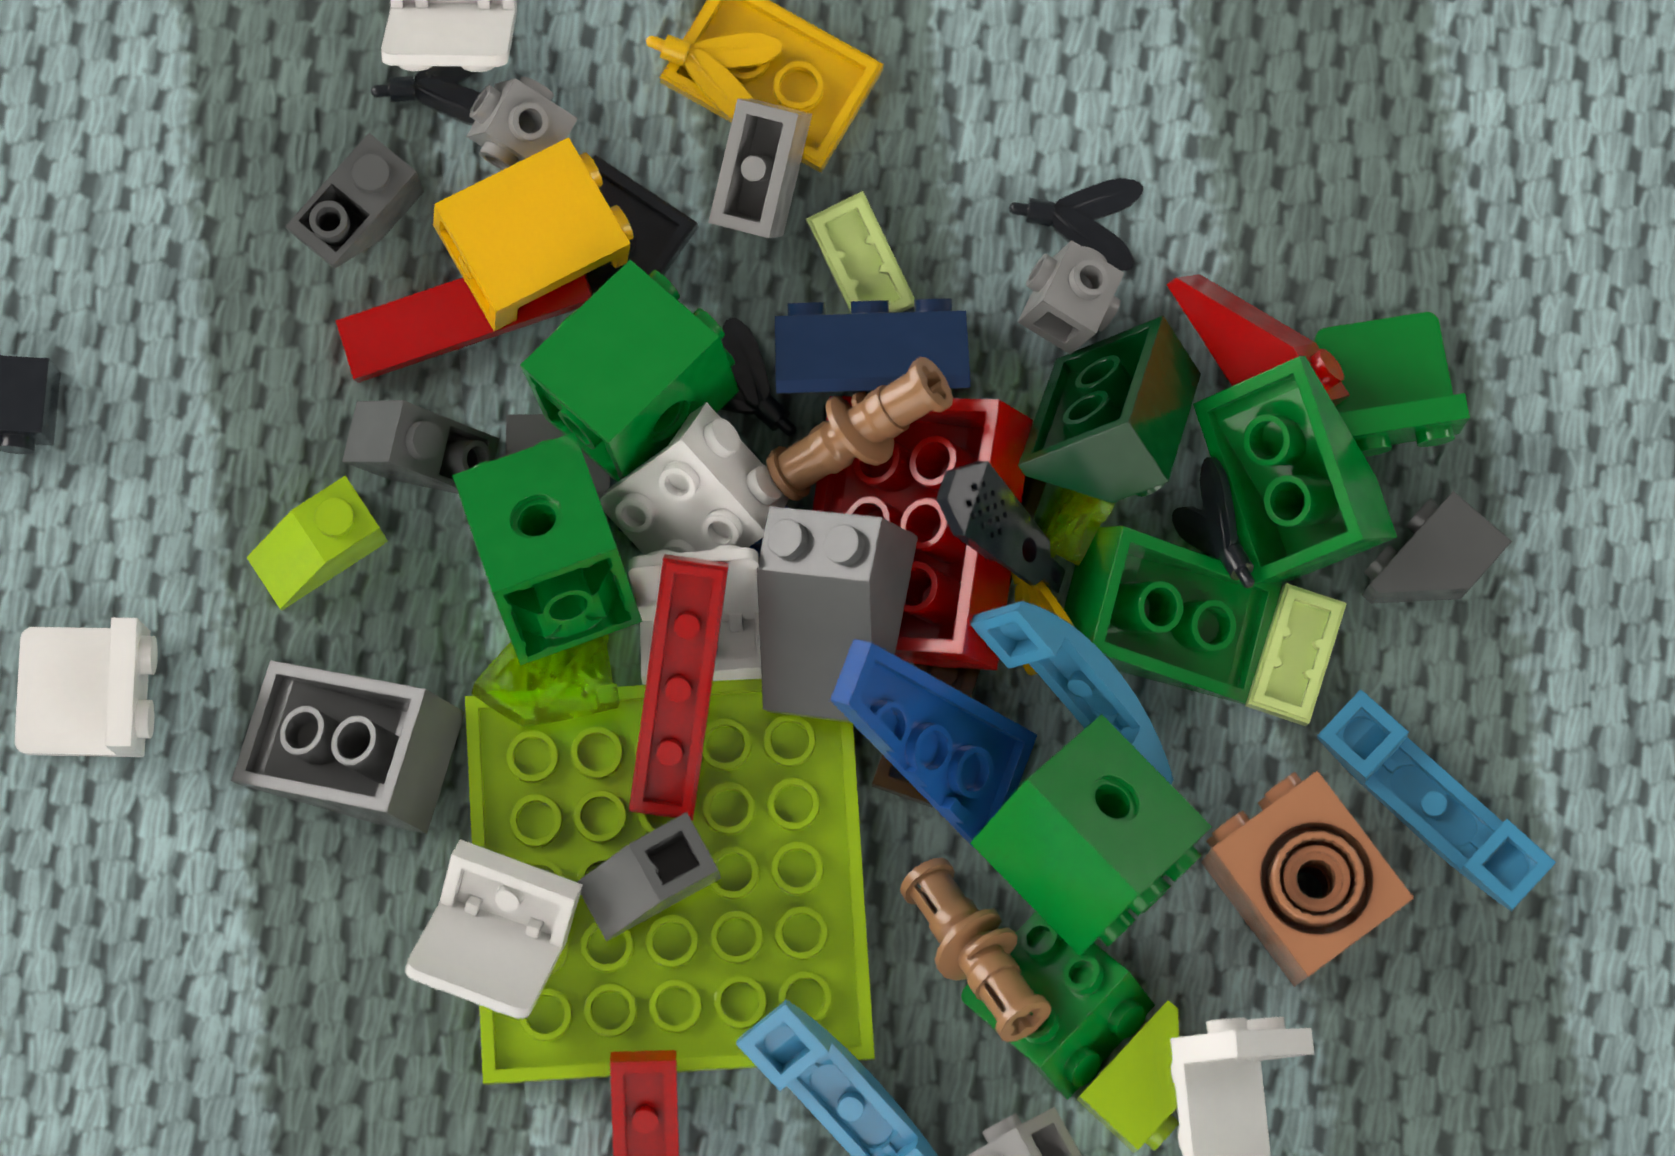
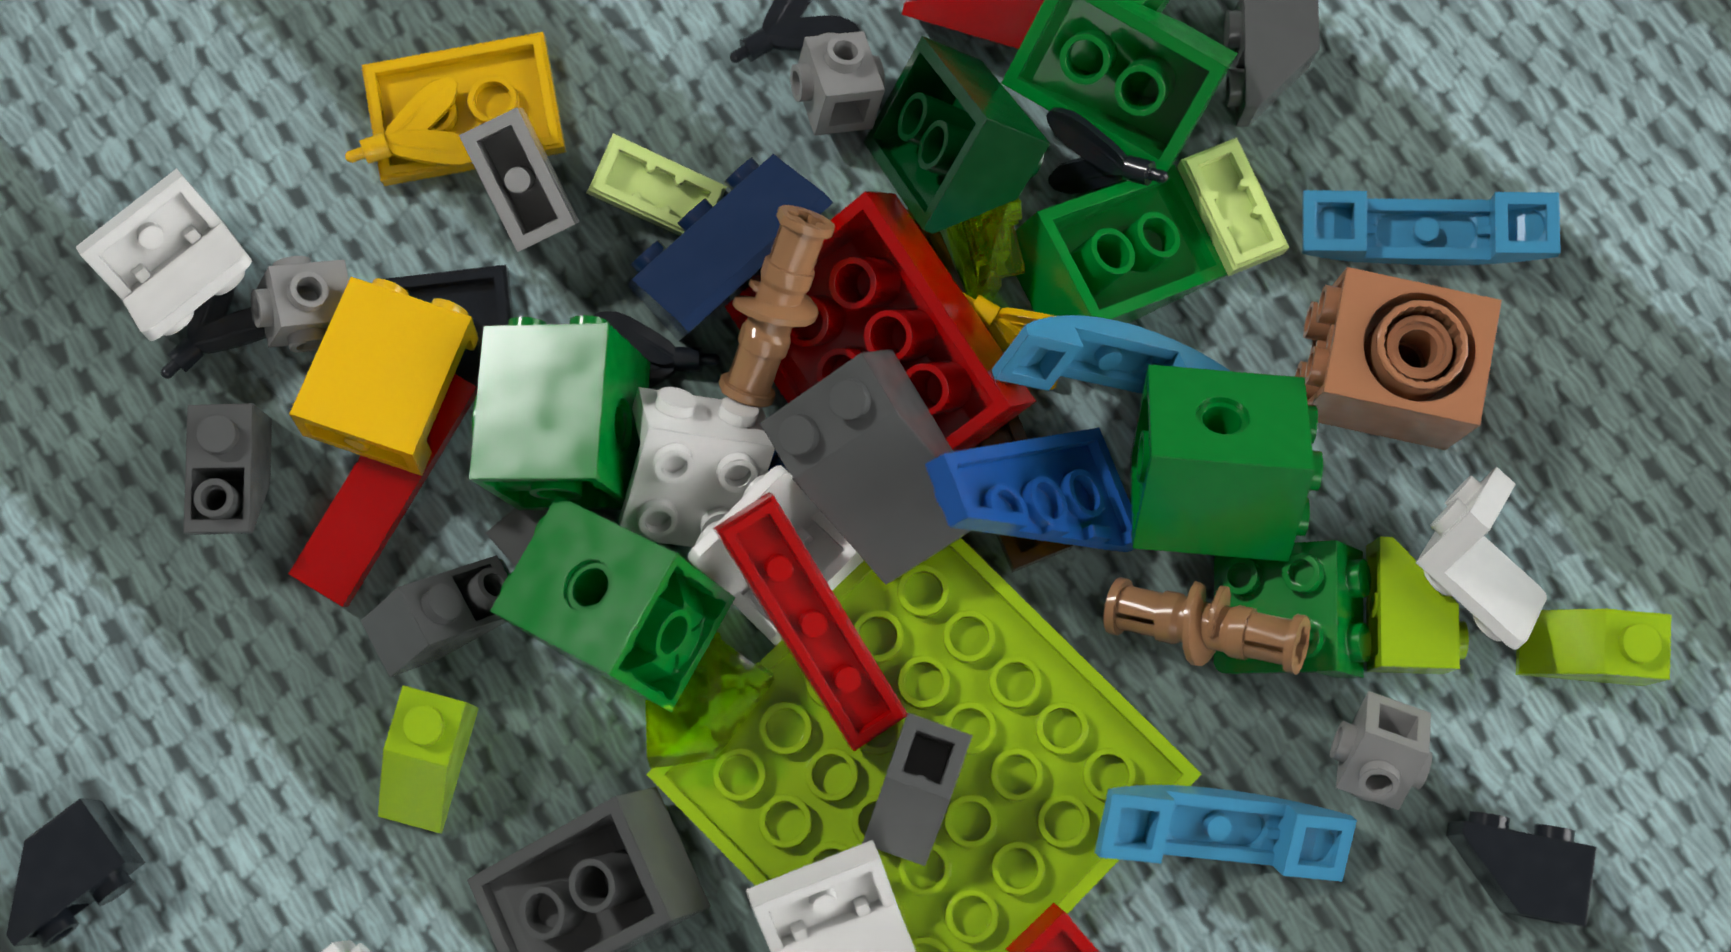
camera: 45 degrees left, 0 degrees up
(996, 524) = (944, 286): black piece -> none

